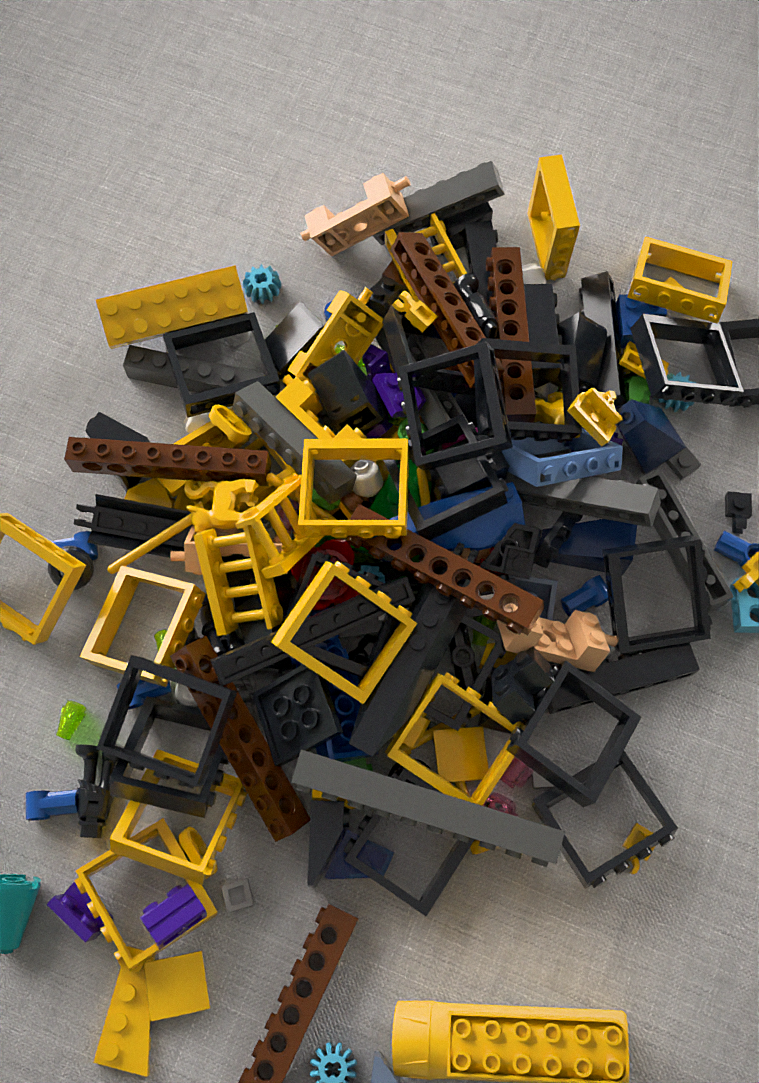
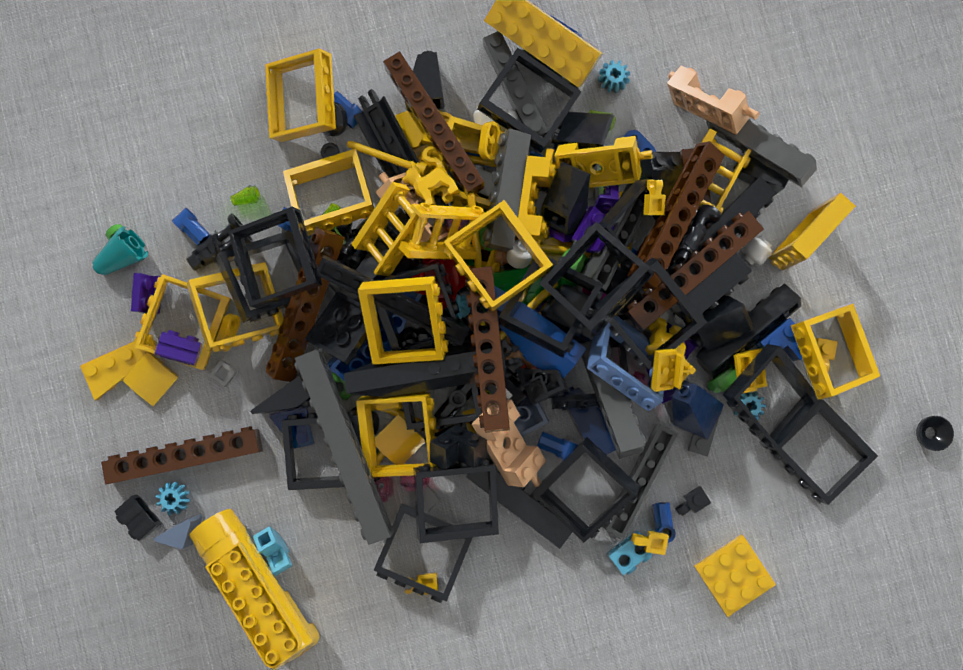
camera: 55 degrees right, 15 degrees up
(98, 596) = (329, 149): none -> black tile
(481, 988) = (274, 549): none -> medium azure brick

